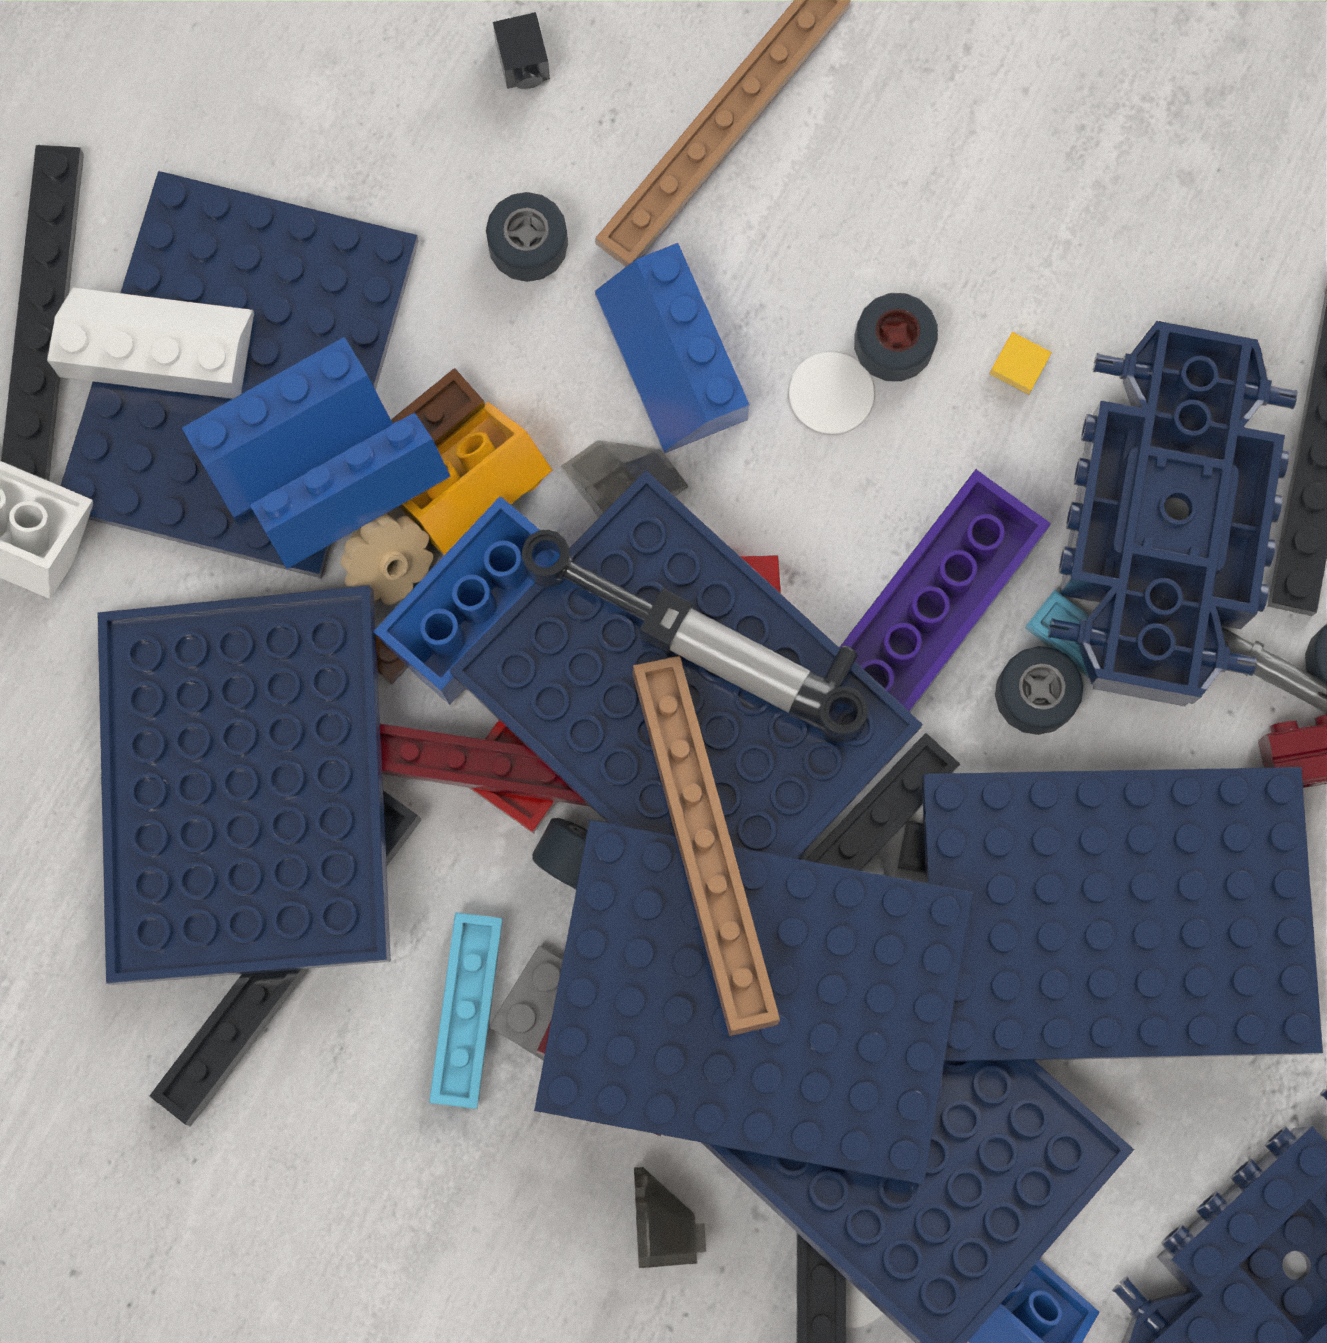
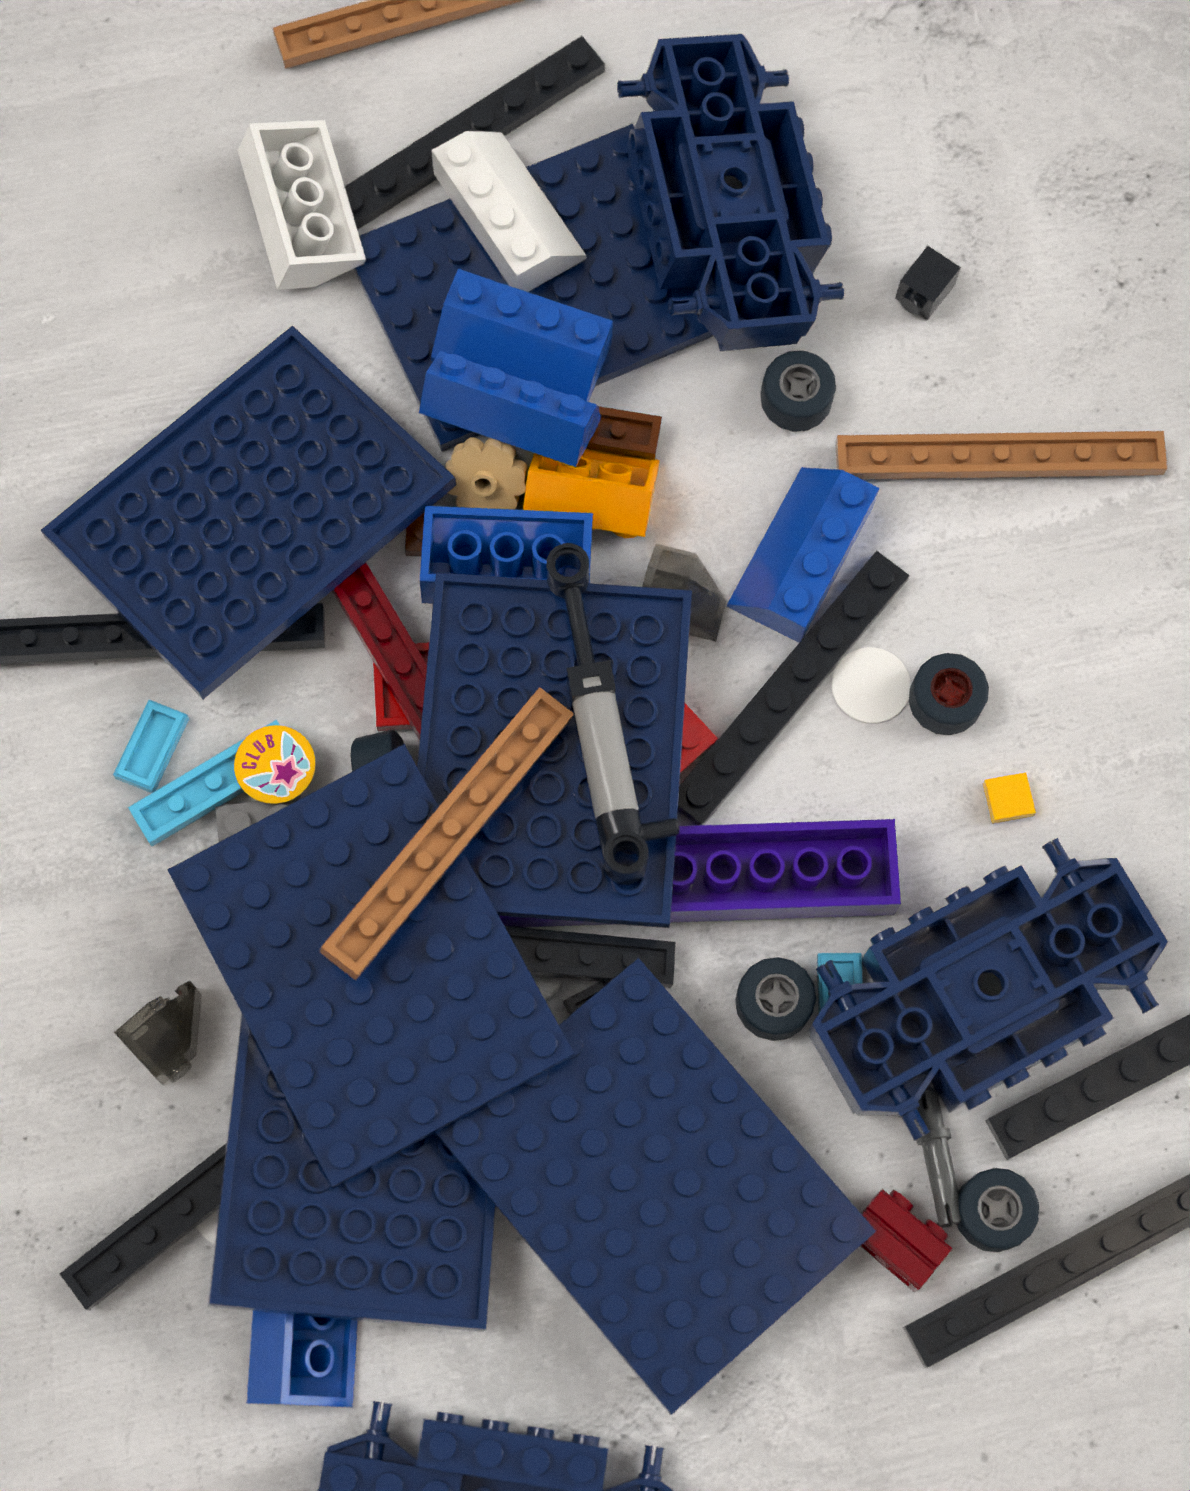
camera: 50 degrees right, 5 degrees down
(360, 172) = (743, 246): none -> dark blue piece
(385, 1039) = (151, 746): none -> medium azure tile
(495, 945) = (274, 764): none -> sticker
(780, 455) = (789, 688): none -> black plate

